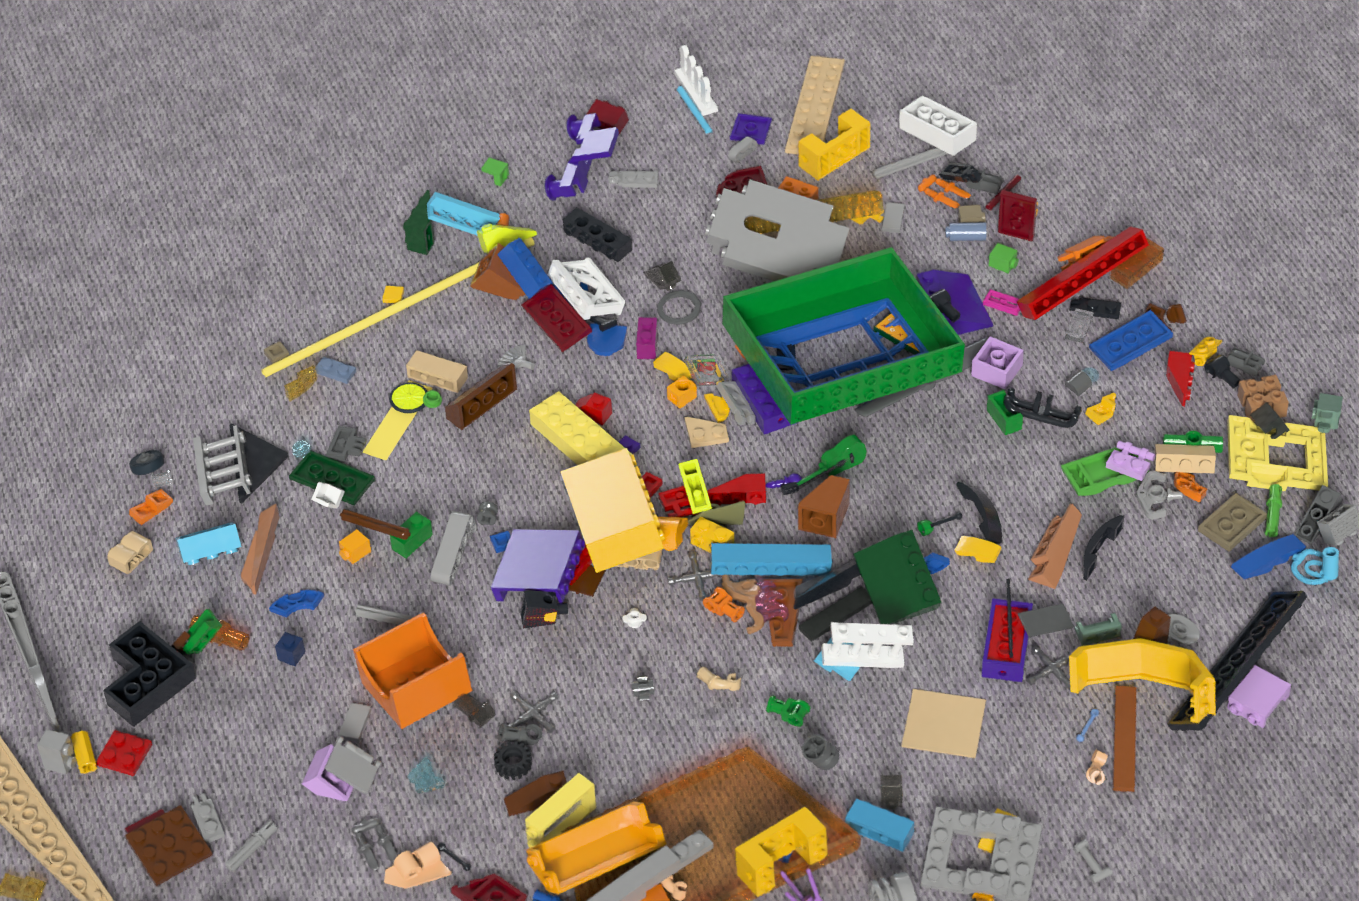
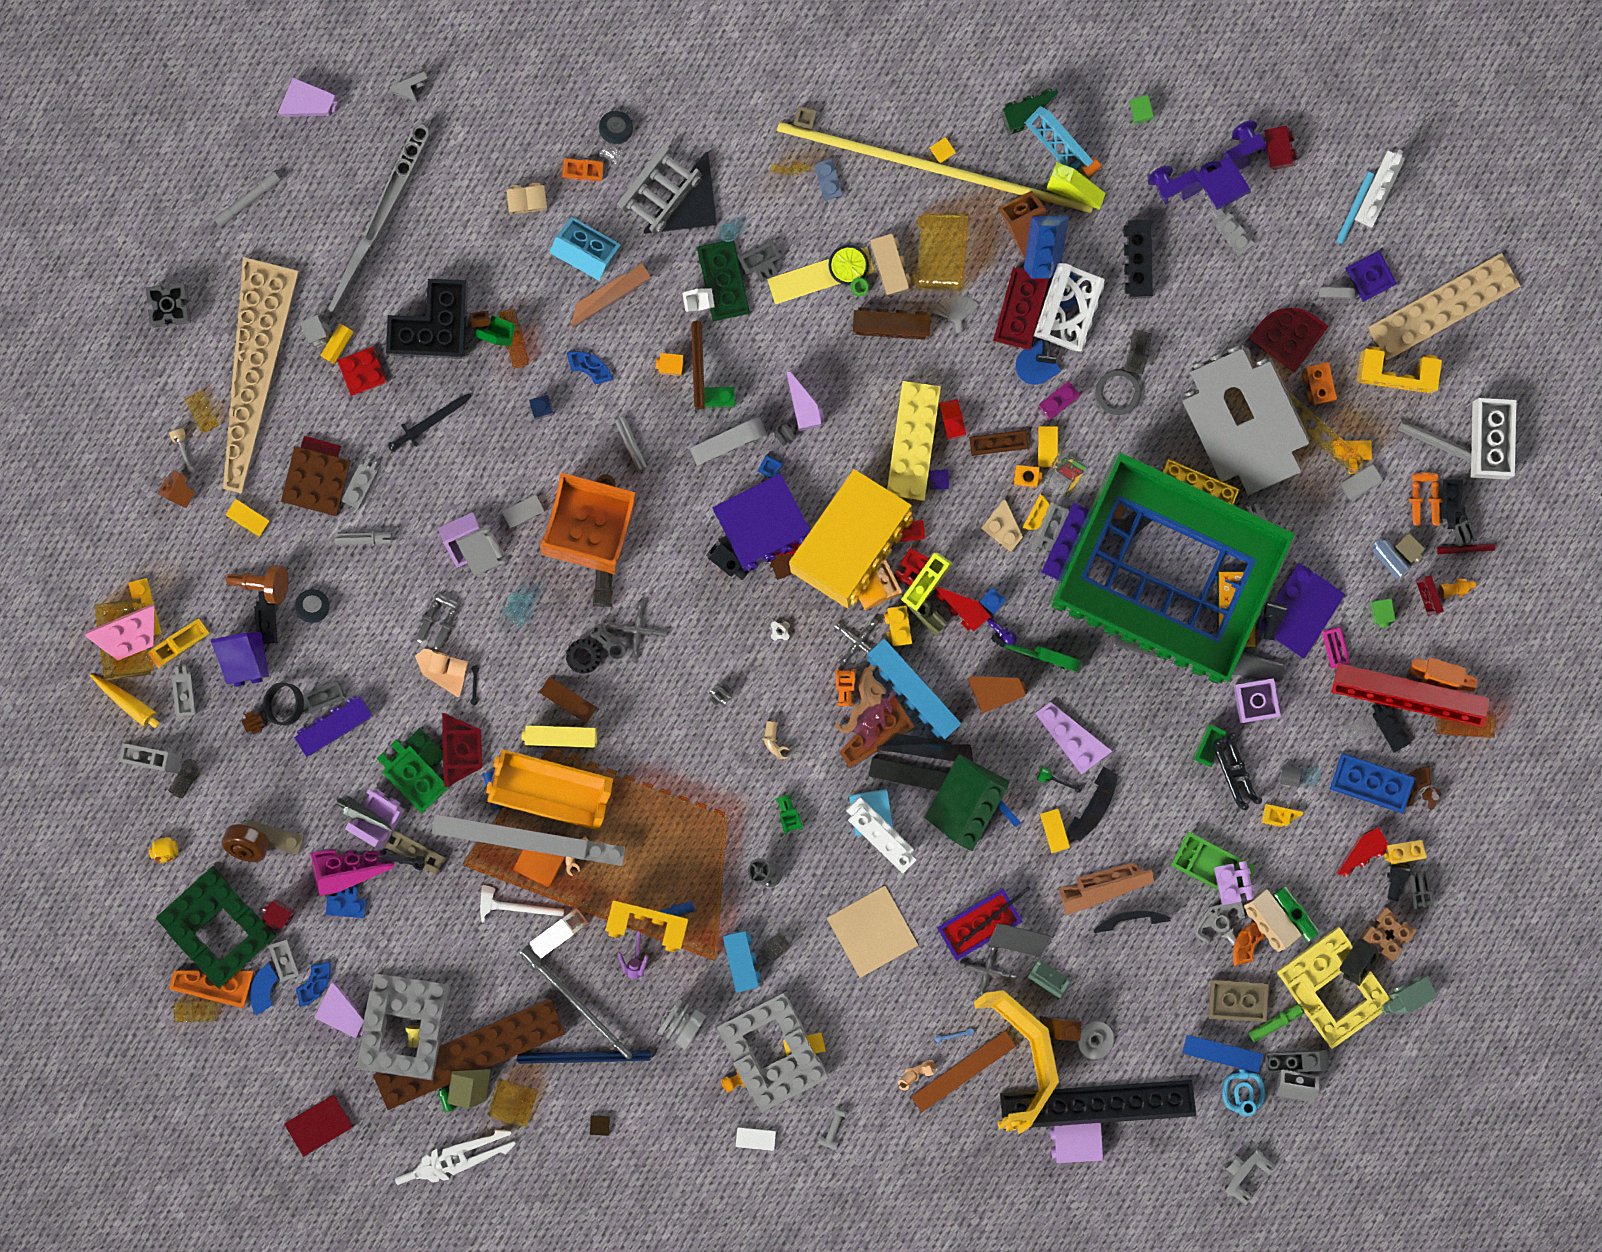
camera: 50 degrees right, 40 degrees up
(213, 742) = (424, 425): none -> black sword
(466, 331) = (941, 252): none -> clear yellow windscreen
(476, 480) = (805, 408): none -> lavender slope
(638, 396) = (998, 442): none -> reddish brown tile
(754, 465) = (992, 601): none -> blue brick
(918, 493) = (1073, 739): none -> lavender wing

